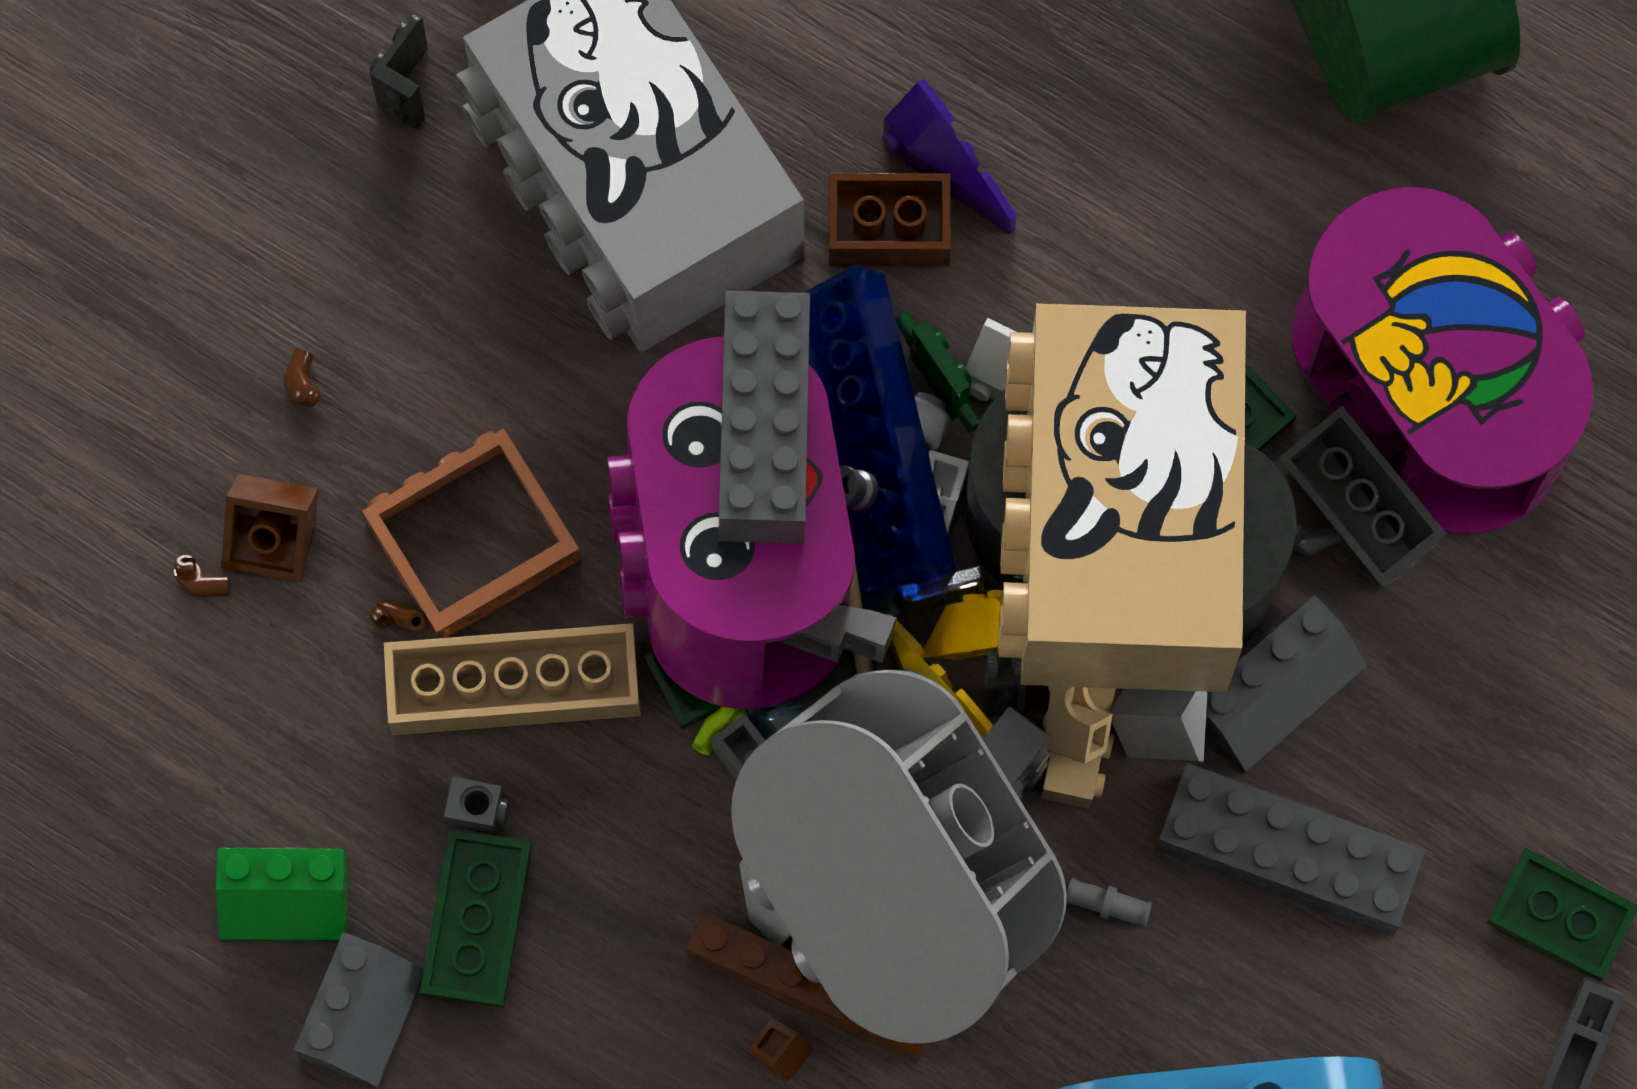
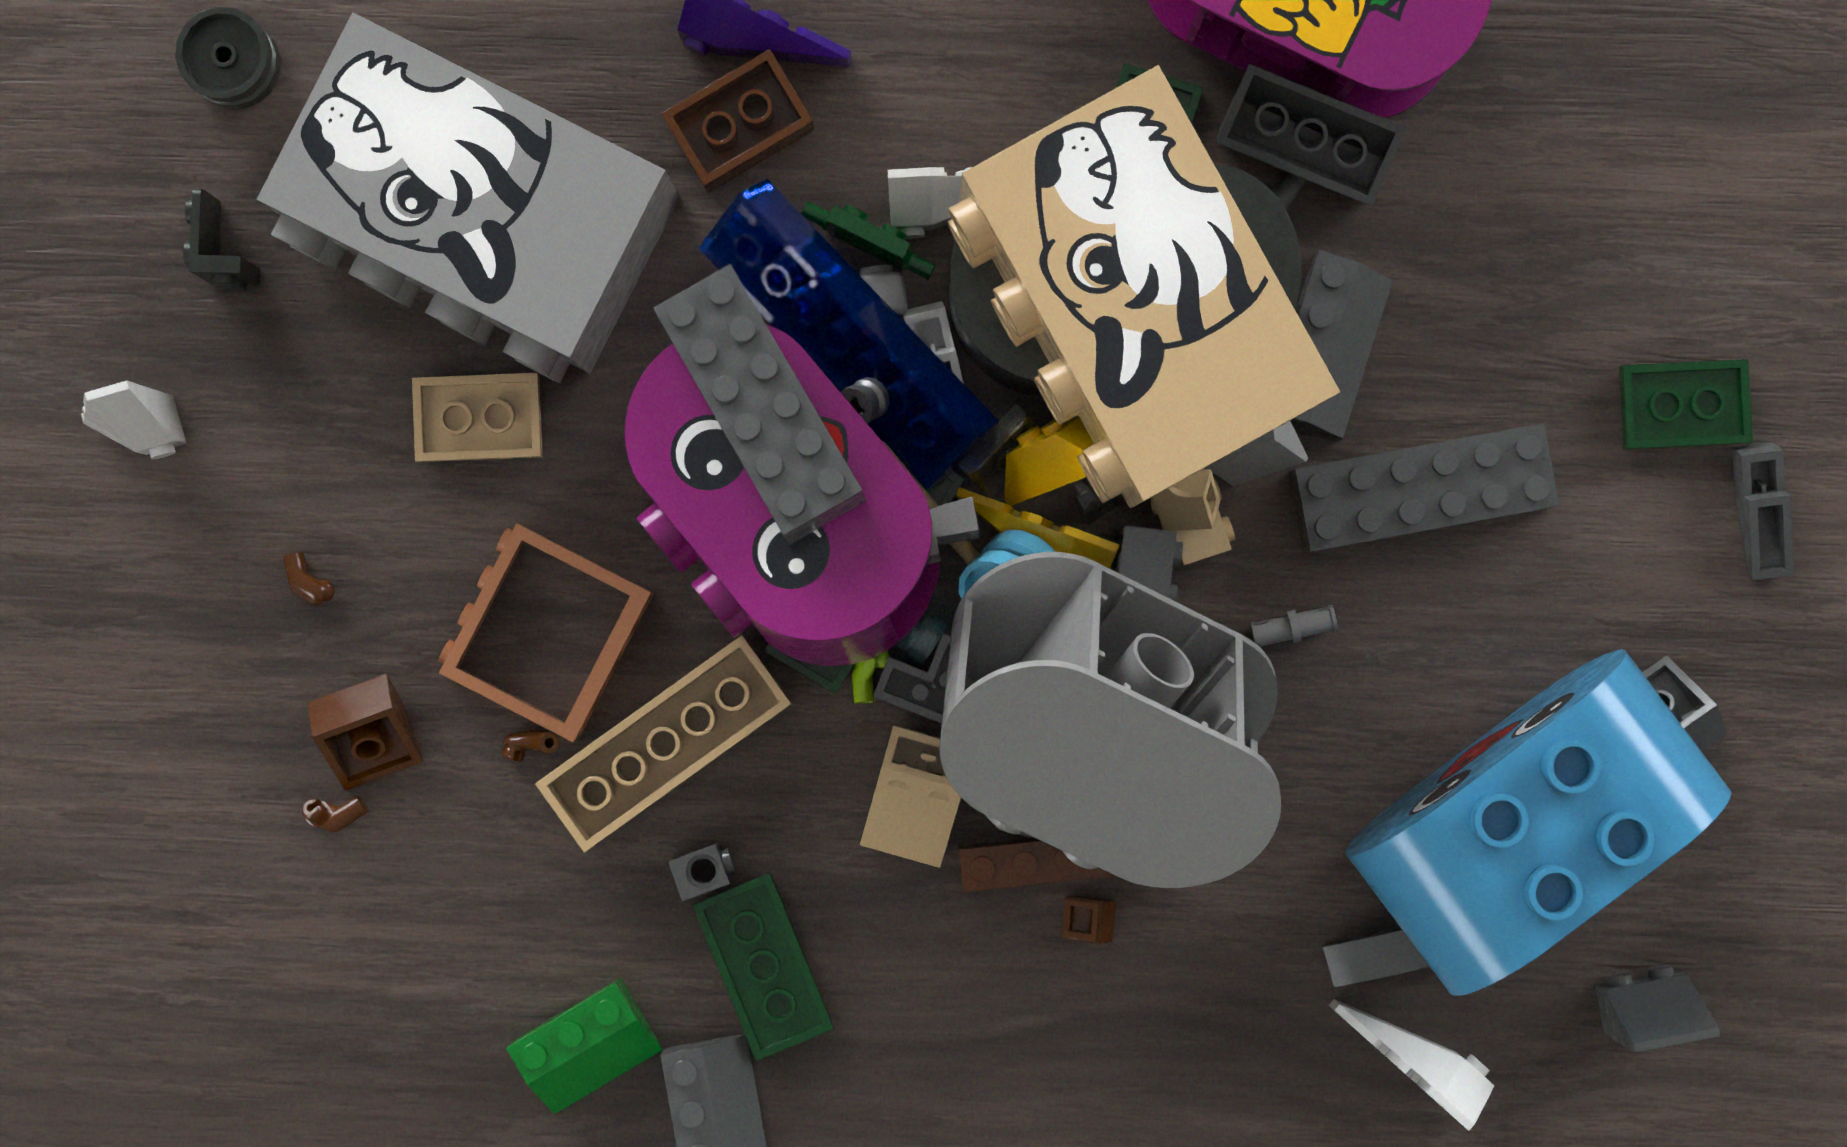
camera: 30 degrees left, 15 degrees up
(249, 161) = (135, 418): none -> white wedge
(525, 331) = (477, 417): none -> tan plate
(689, 852) = (912, 800): none -> tan slope

